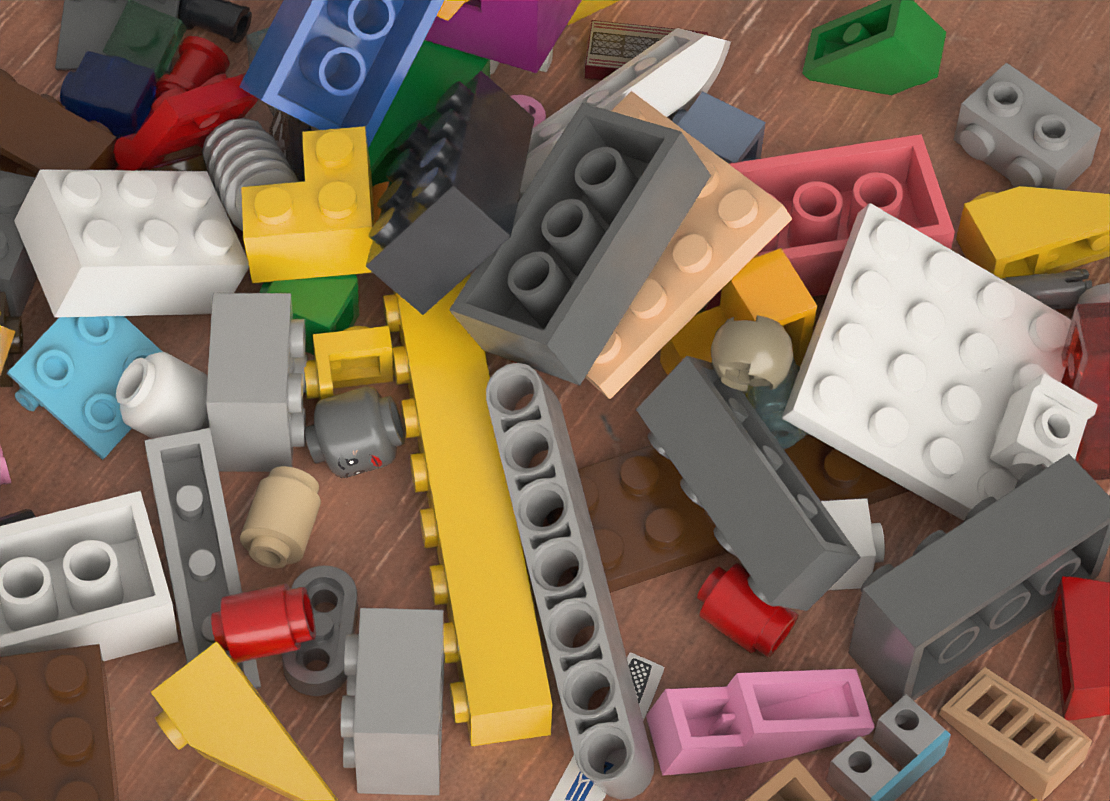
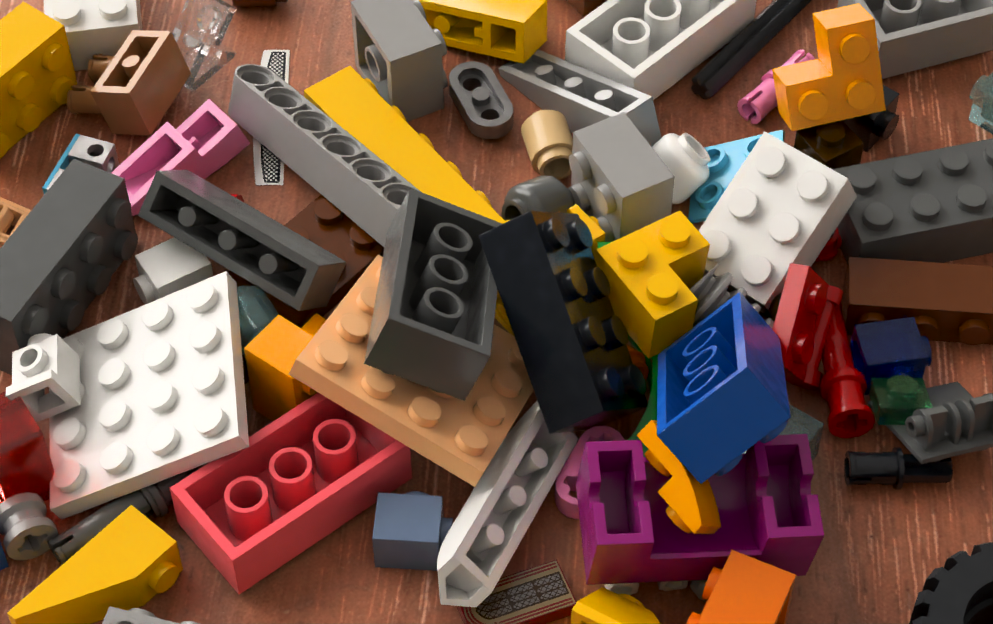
camera: 155 degrees right, 5 degrees down
(264, 622) = (507, 59): red brick -> none
(751, 353) = (271, 272): dark tan piece -> none

